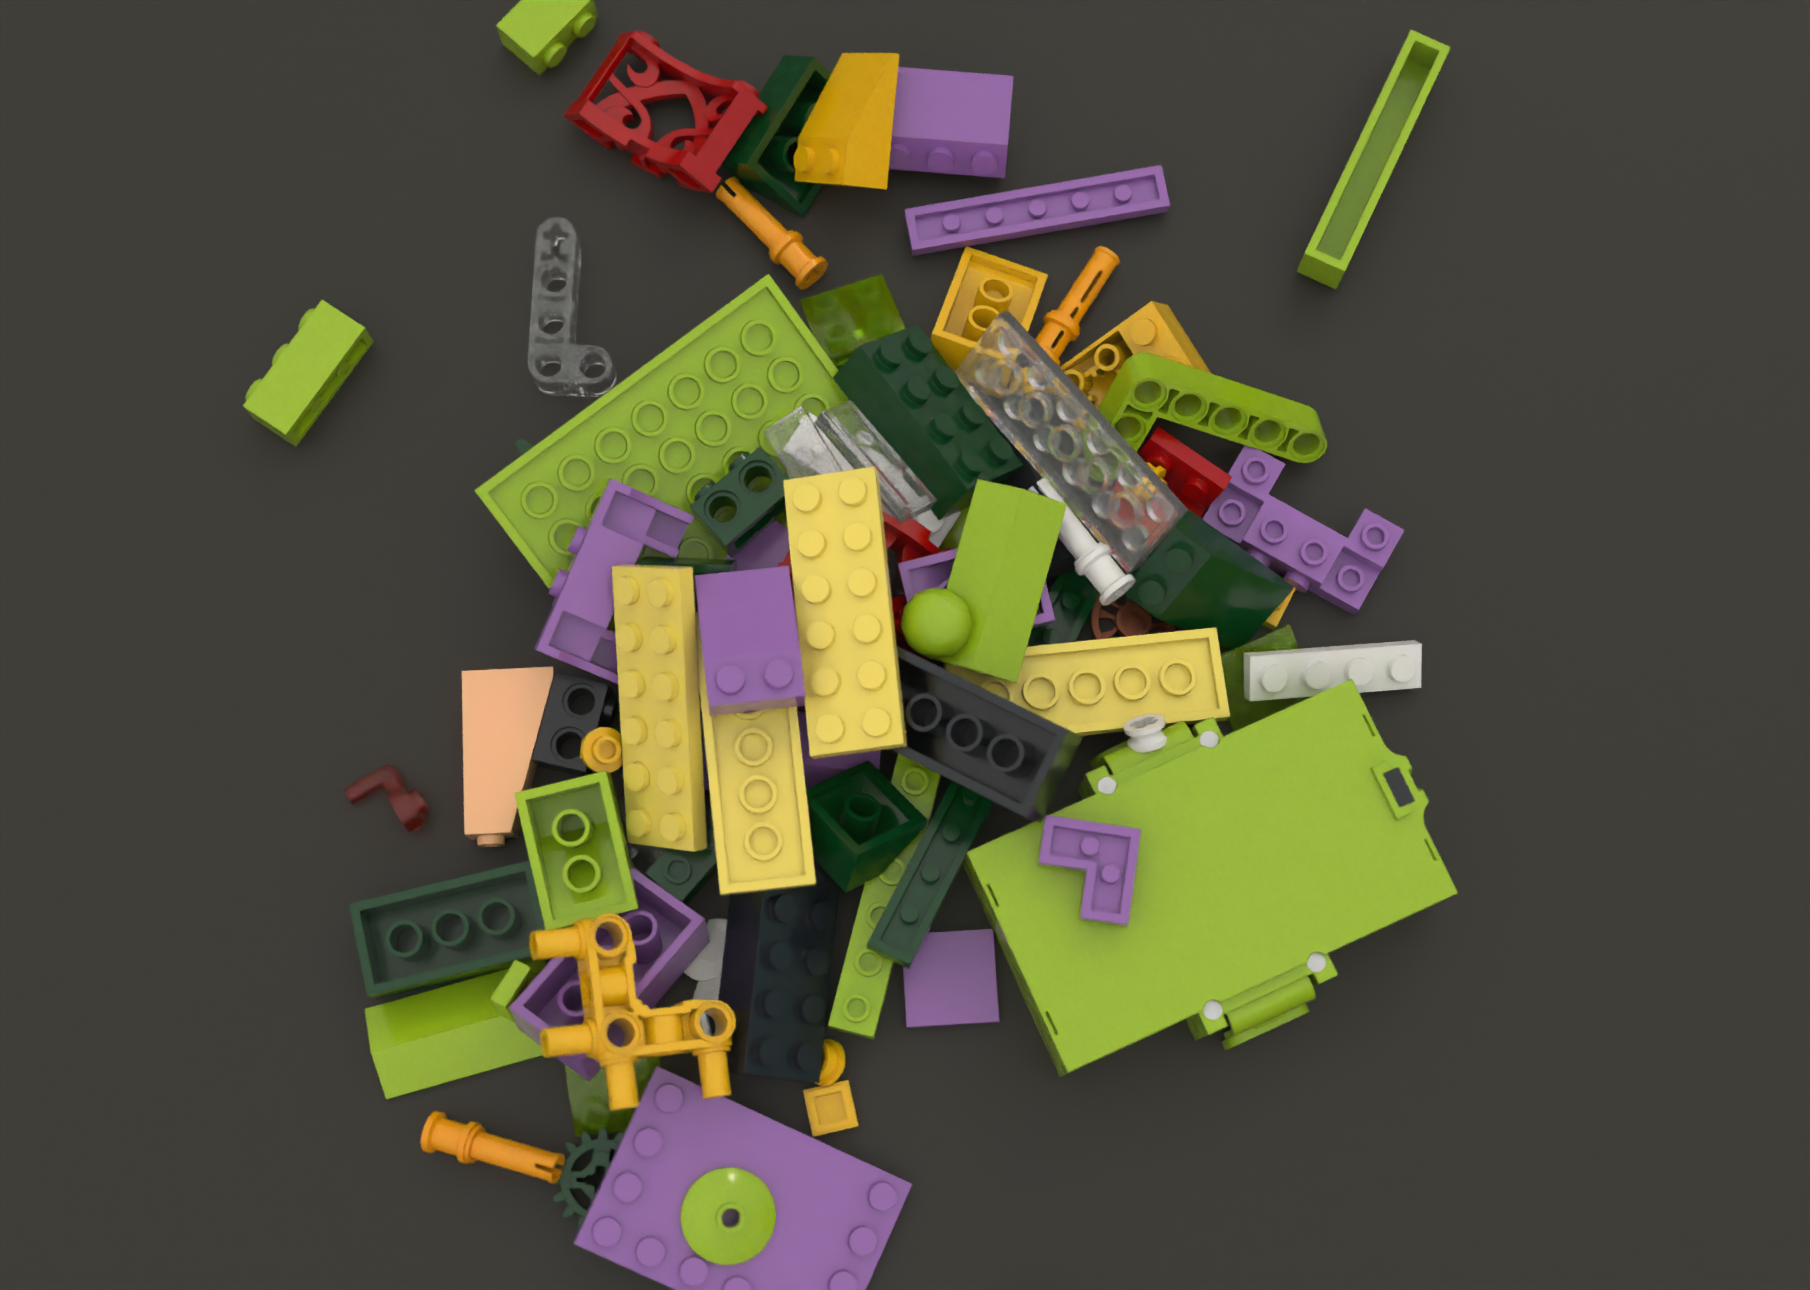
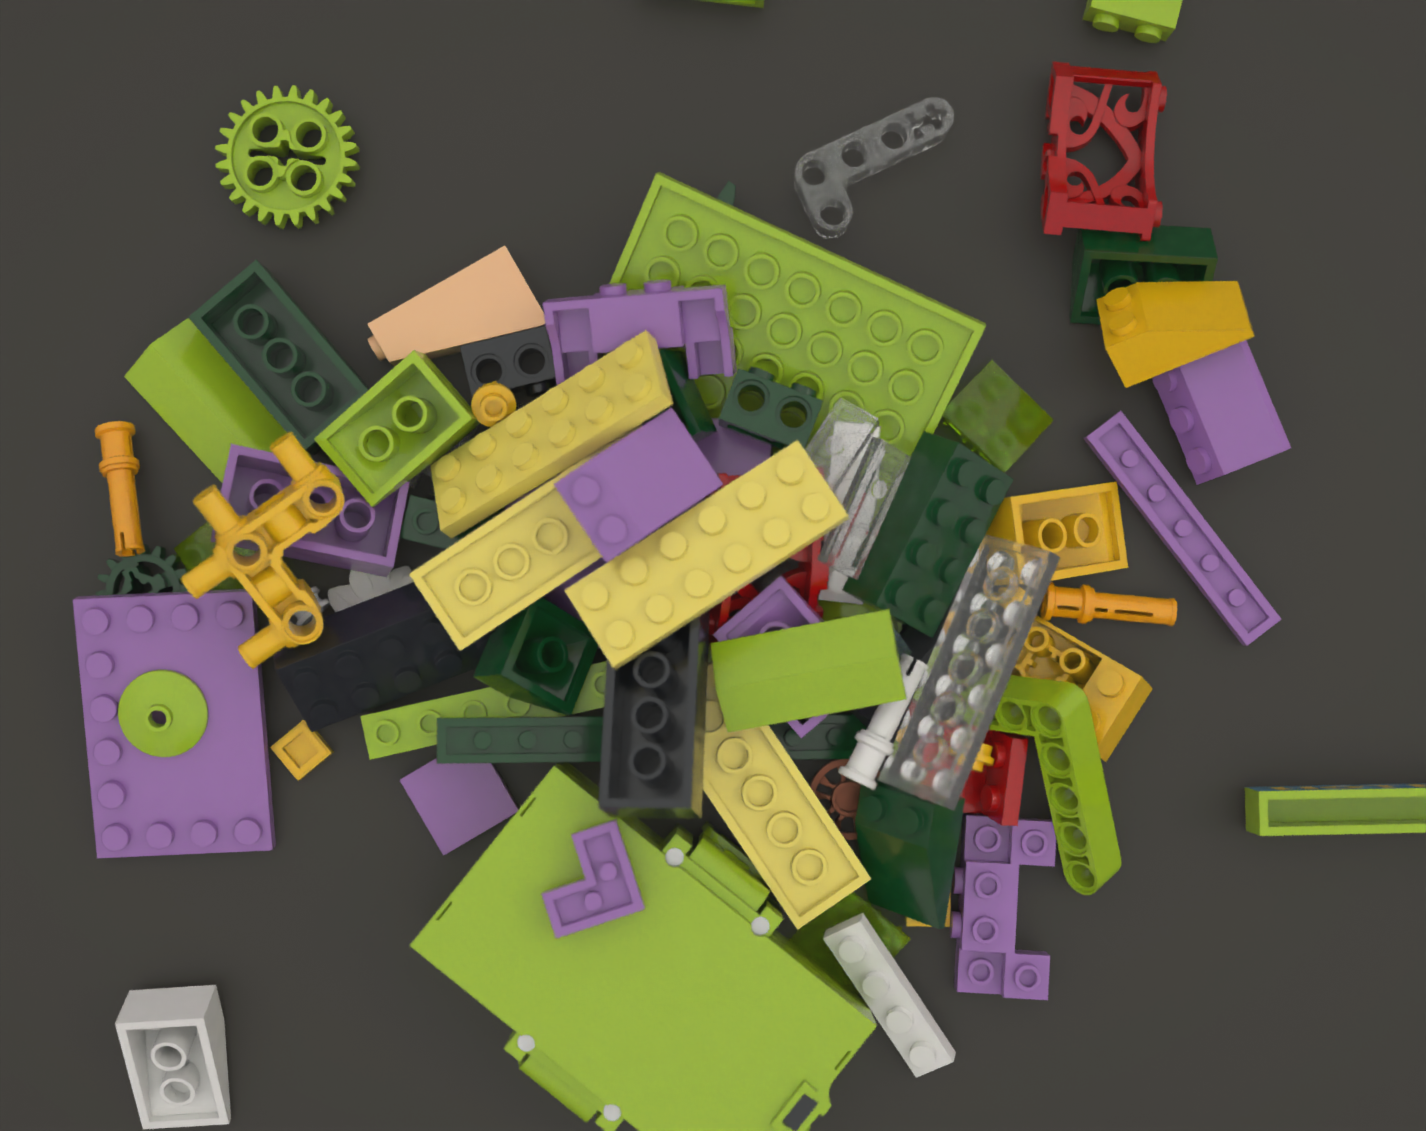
camera: 60 degrees right, 10 degrees up
(235, 811) = (294, 120): none -> lime gear
(407, 804) = (371, 259): clear red plate -> none
(511, 987) = (256, 435): lime tile -> none
(784, 245) = (1033, 320): light orange pin -> none
(832, 1062) = (338, 732): yellow plate -> none
(936, 623) = (741, 638): lime hair -> none
(1145, 733) = (741, 866): white bush -> none

